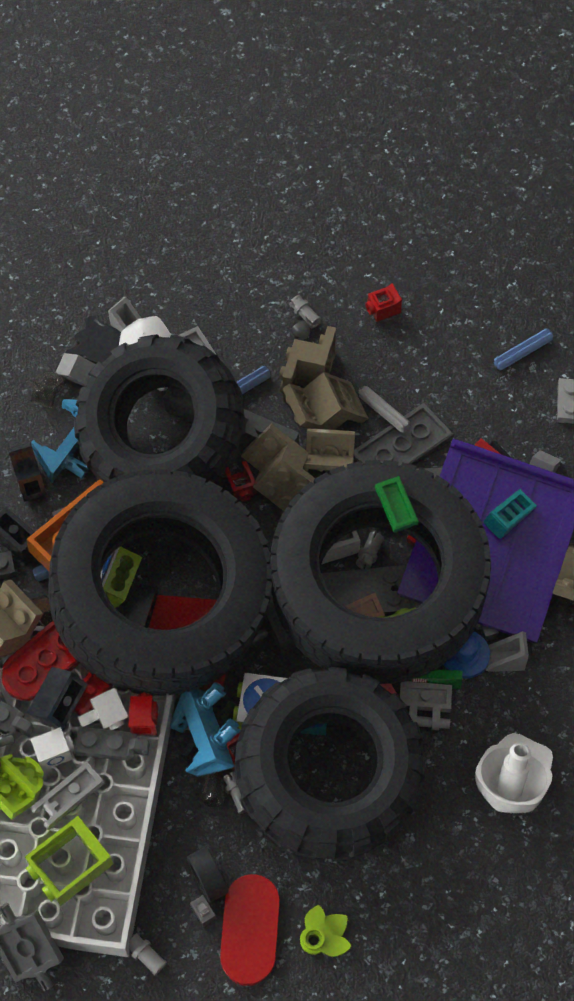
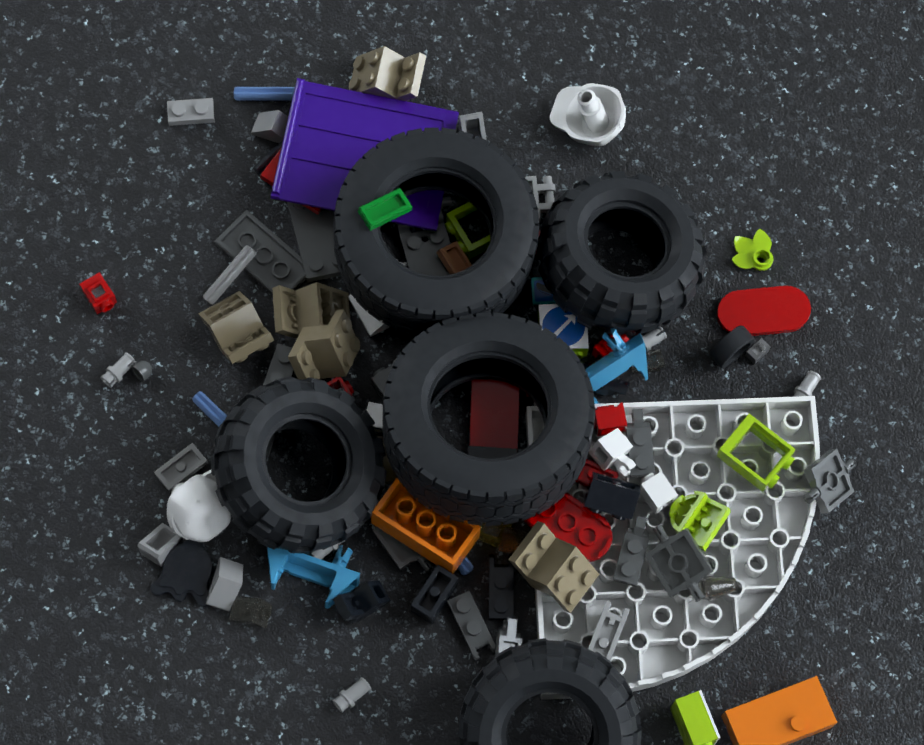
camera: 105 degrees left, 10 degrees up
(69, 794) = (695, 468): light grey hinge -> none
(308, 360) = (192, 349): dark tan bracket -> none
(499, 523) = (351, 149): teal slope -> none
(523, 349) = (136, 158): medium blue axle -> none

